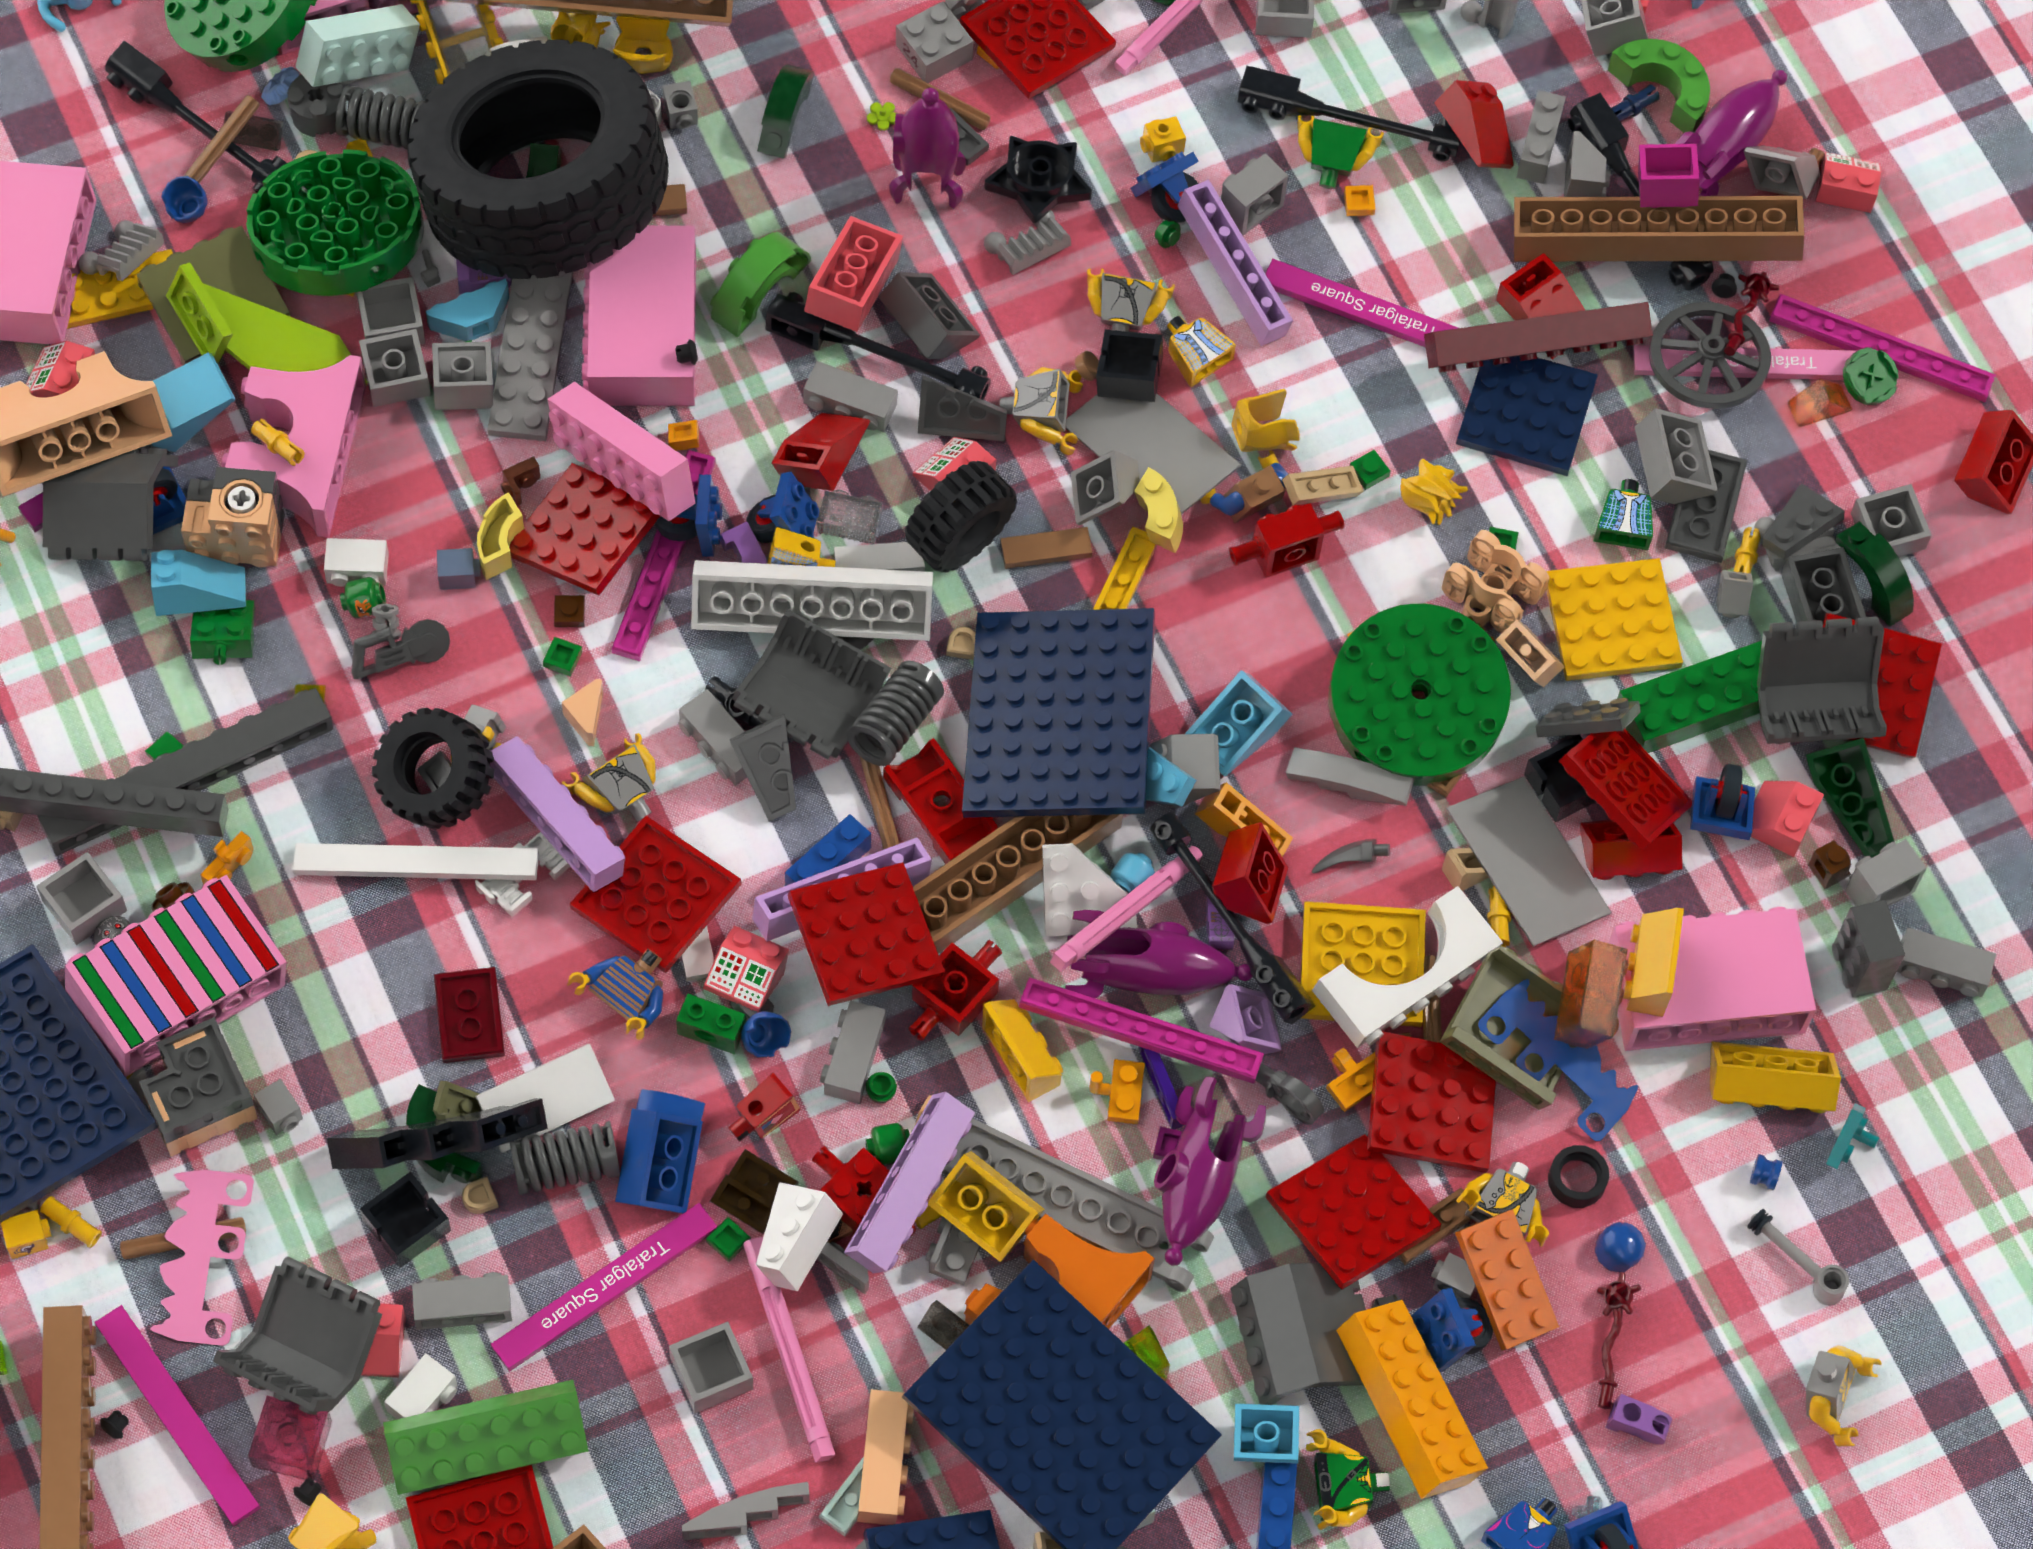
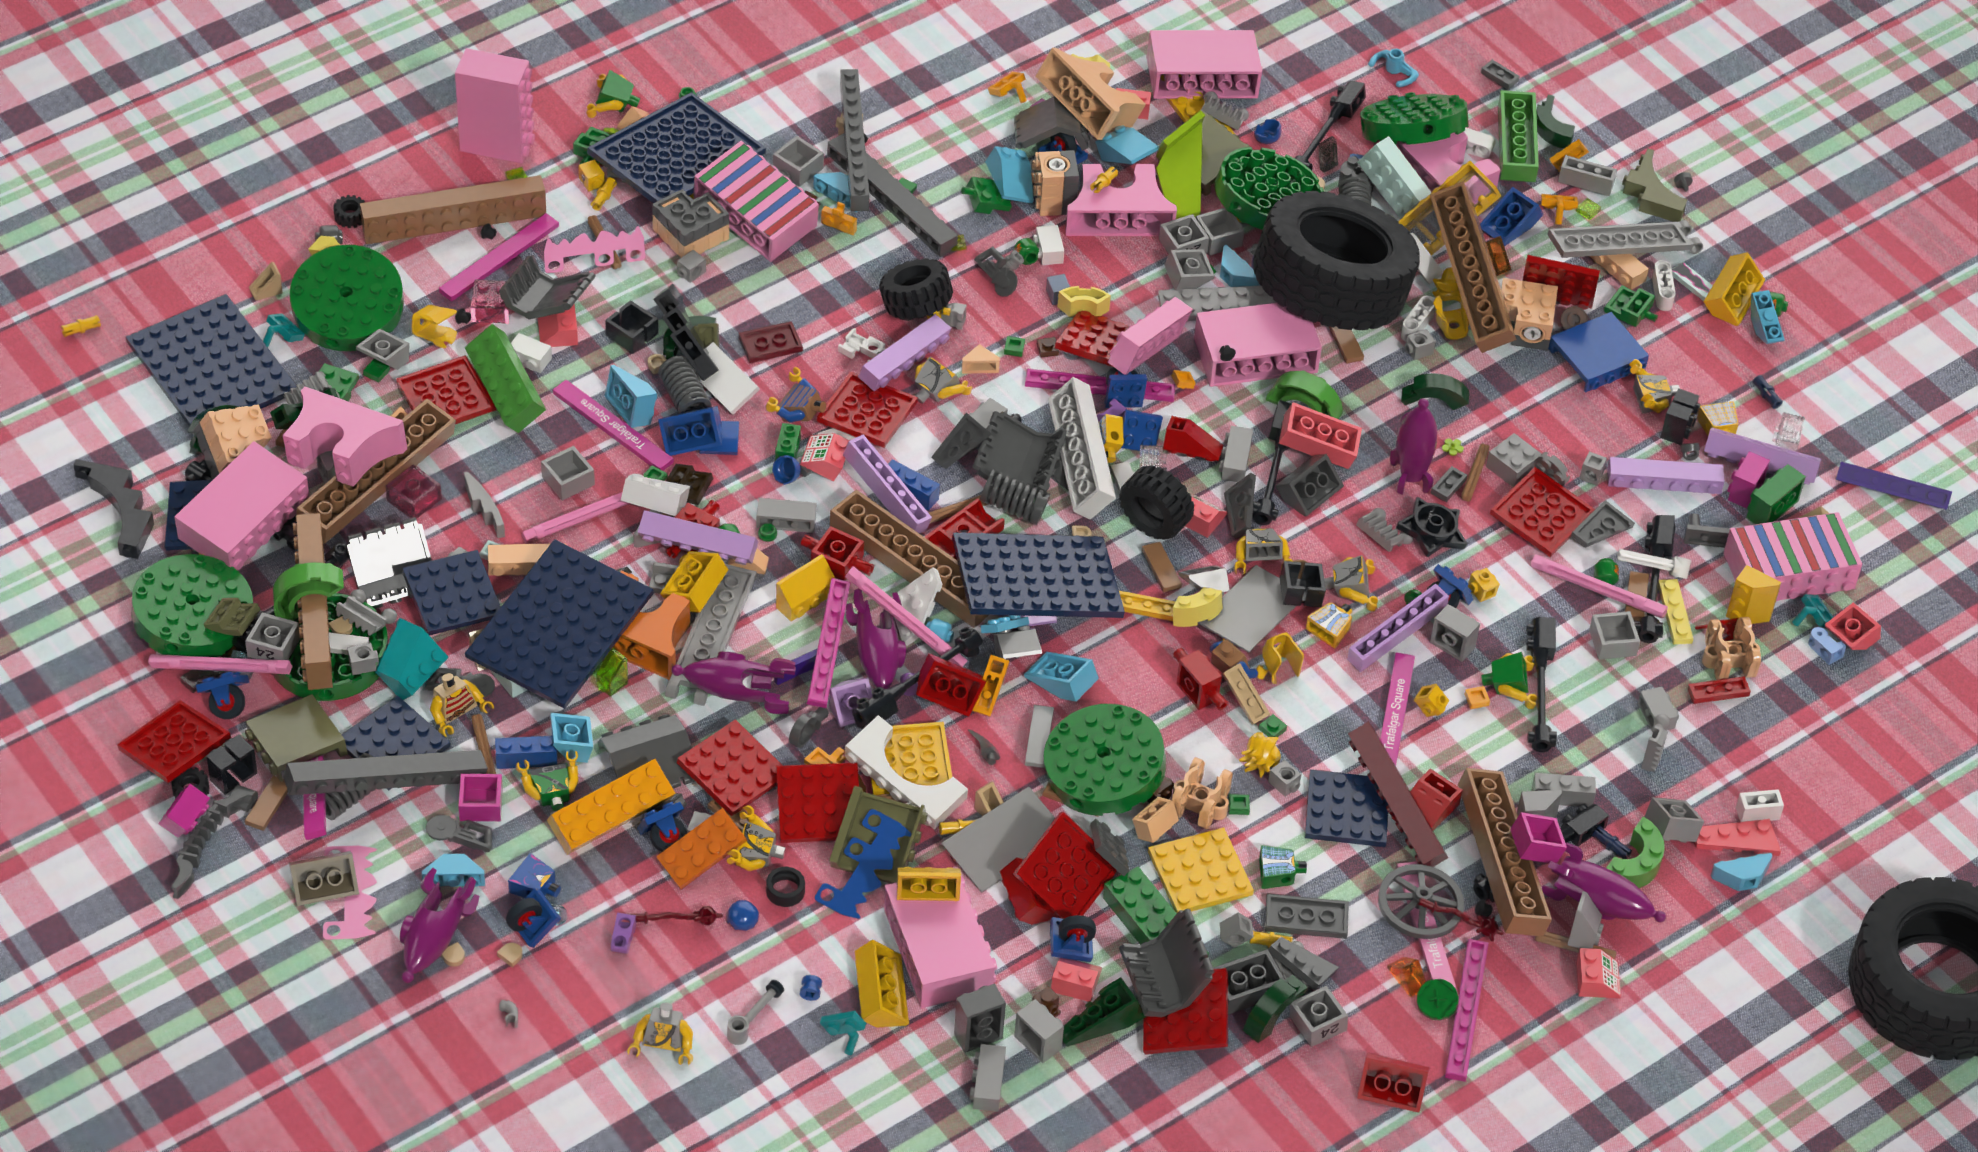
camera: 80 degrees right, 15 degrees down
(152, 850) = (833, 186): none -> medium azure slope
(223, 138) = (1311, 137): medium nougat axle -> none
(415, 861) = (860, 300): white tile -> none
(461, 1301) = (589, 362): light grey brick -> none
(520, 476) = (1129, 307): copper bracket -> none
(568, 1244) = (630, 397): none -> medium azure slope
(771, 1102) = (738, 476): red torso -> none
(865, 933) = (854, 491): red plate -> none
(1123, 1091) = (791, 649): light orange plate -> none
(1357, 255) = (1431, 700): none -> yellow brick
(1477, 462) = (1285, 778): none -> light grey brick
(1478, 122) = (1556, 747): red slope -> none
(1591, 994) = (889, 855): clear orange brick -> none
(1675, 457) = (1332, 887): light grey slope -> none

